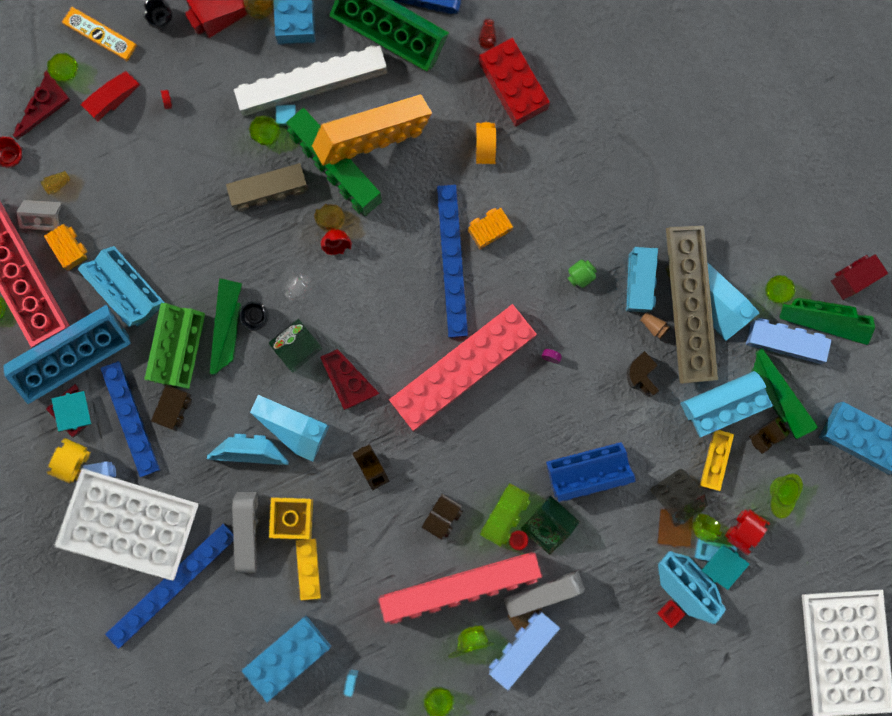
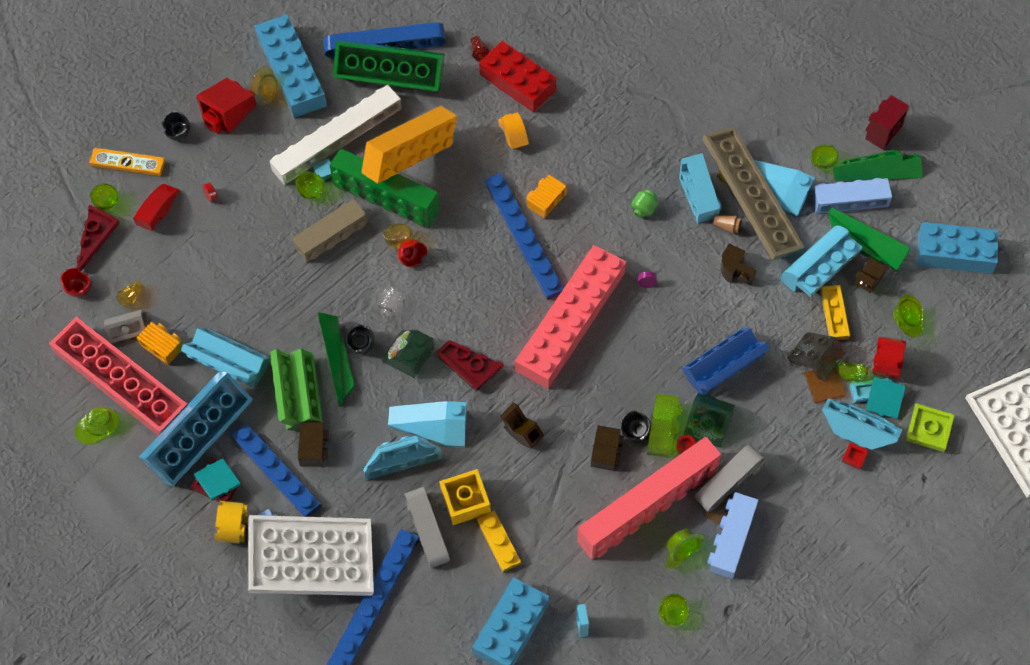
camera: 15 degrees left, 20 degrees down
(477, 507) = (635, 426): none -> black hair
(754, 612) = (930, 427): none -> lime plate

